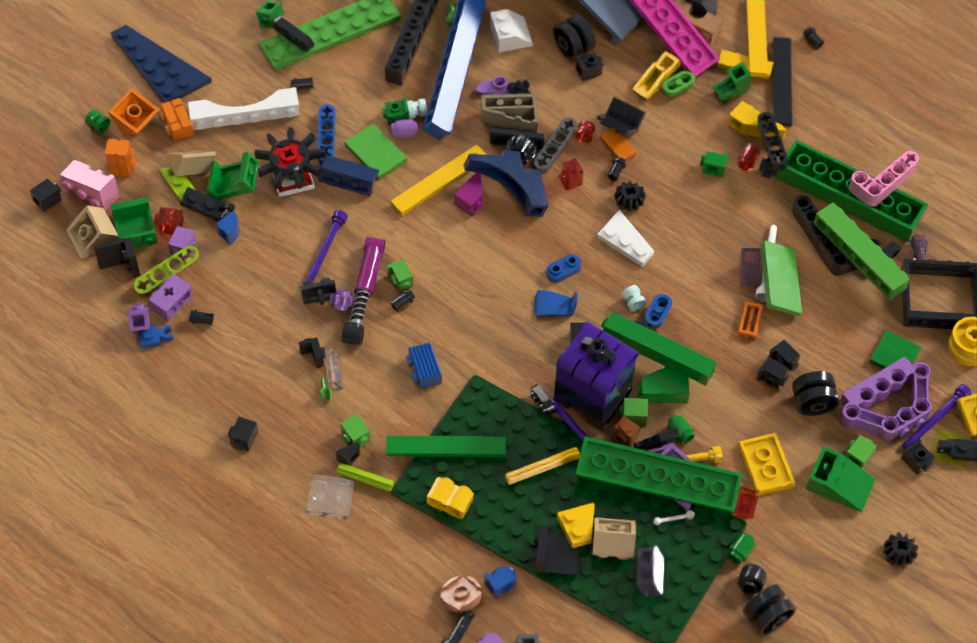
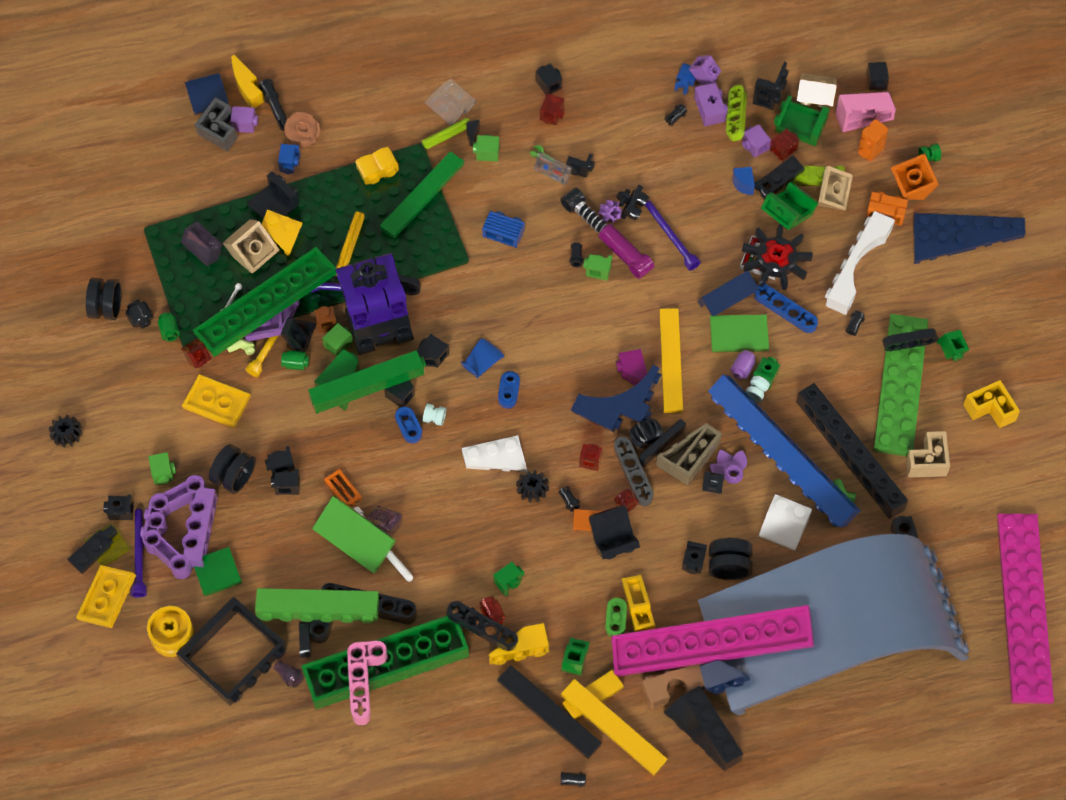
camera: 130 degrees right, 5 degrees up
(274, 410) = (552, 109): none -> clear red brick
(840, 480) = (153, 433): green slope -> none

